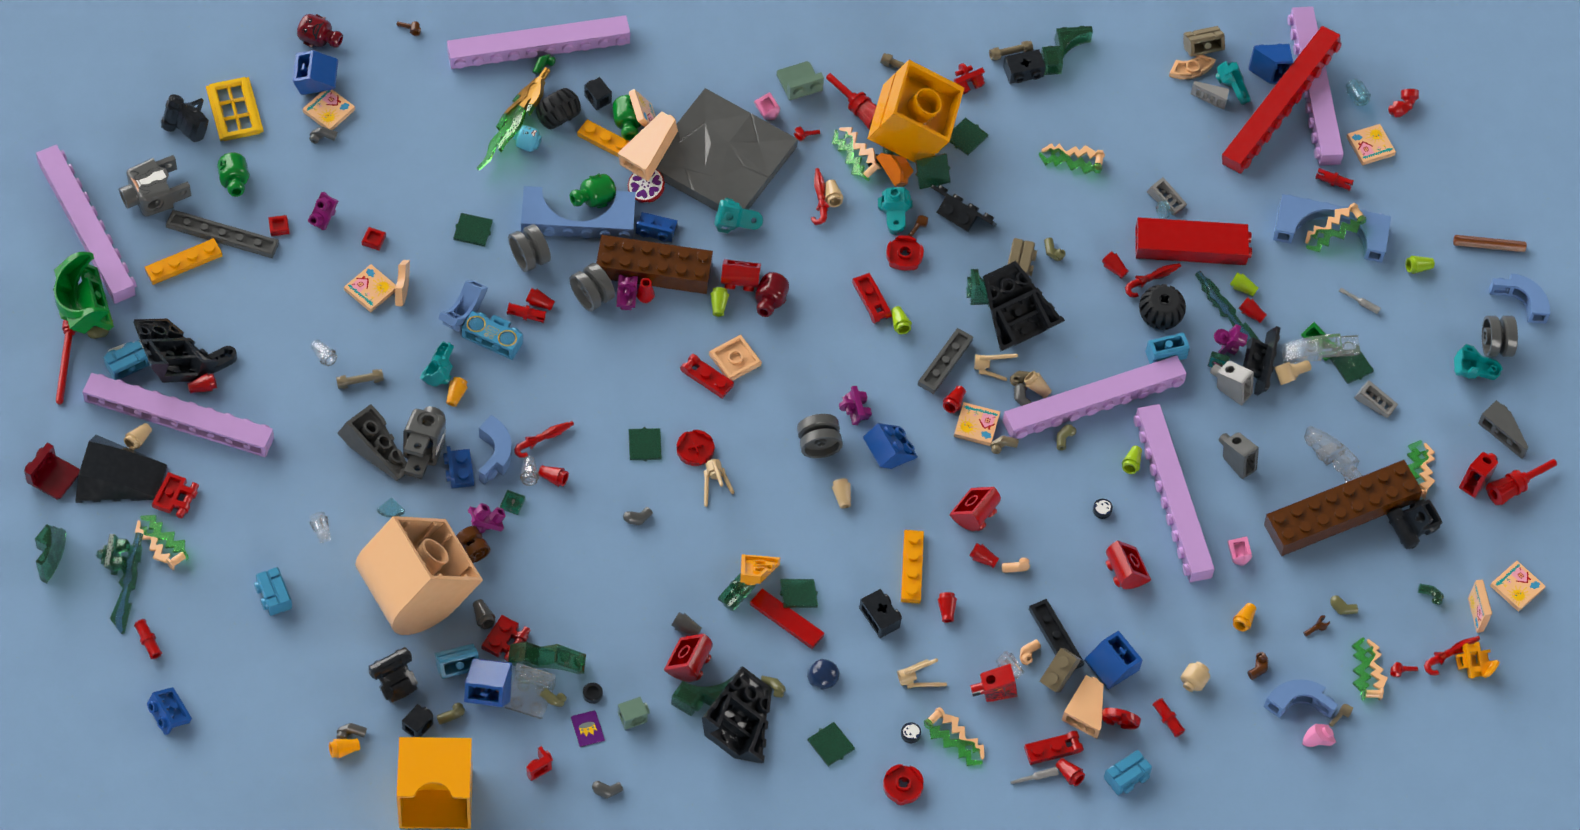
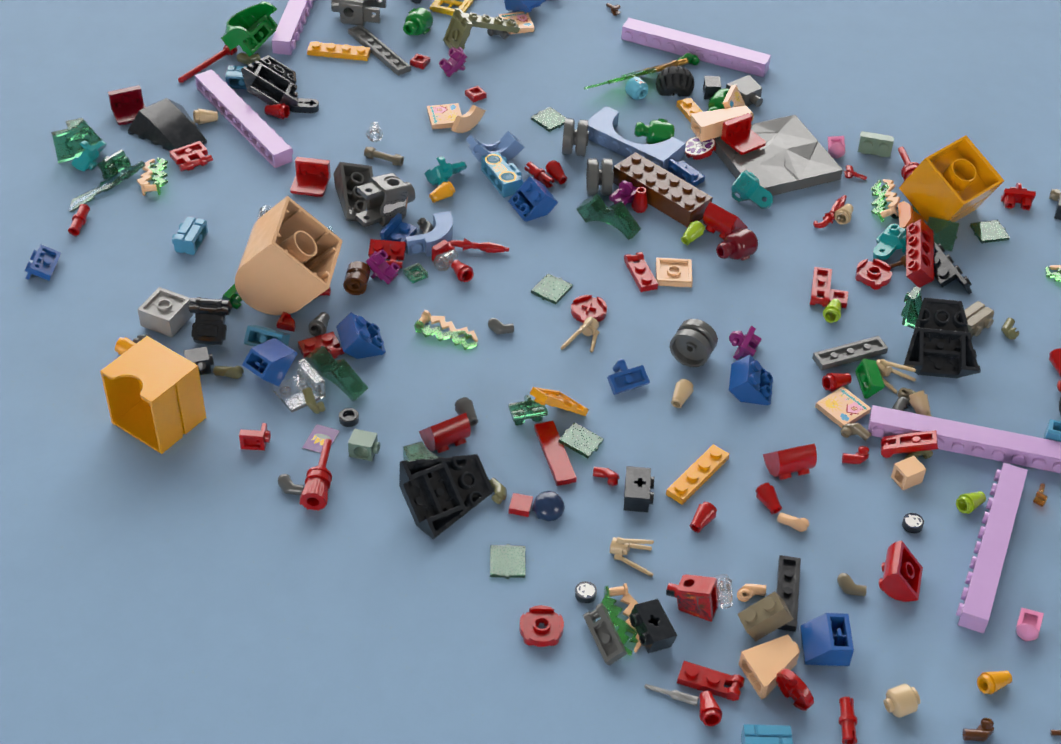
camera: 40 degrees right, 15 degrees down
(80, 559) = (89, 156): none -> teal piece
(297, 161) = (461, 25): none -> olive bracket
(320, 452) = (311, 176): none -> red bracket
(342, 690) = (164, 312): none -> light grey container
(380, 636) = (232, 295): none -> green tile
(449, 630) = (286, 322): none -> red tile
(468, 493) = (394, 249): none -> red plate
(479, 444) = (425, 225): none -> dark grey arm
(516, 465) = (439, 248): none -> red tile
(533, 607) = (360, 337): none -> blue slope
(548, 351) = (532, 200): none -> blue slope
(603, 550) = (453, 333): none -> clear neon green piece
(628, 770) = (317, 482): none -> red piece
(634, 77) = (749, 90): none -> torso
(641, 325) = (616, 215): none -> clear green arch
(683, 153) = (739, 135): none -> red bracket
(789, 505) = (627, 378): none -> blue plate
(800, 686) = (520, 505): none -> tile
(842, 612) = (606, 473): none -> red arm
(894, 299) = (841, 295): none -> tile
(932, 209) = (919, 253): none -> red brick
(954, 760) = (605, 634): none -> dark grey plate
(979, 380) = (869, 377): none -> green slope
(985, 731) = (652, 626): none -> black brick
(1022, 469) = (856, 458): none -> red arm
(1055, 432) = (909, 443): none -> red plate
(1071, 461) = (908, 473): none -> light nougat brick
(1094, 599) = (849, 587): none -> dark tan arm
(1179, 422) = (1040, 498): none -> clear orange hand

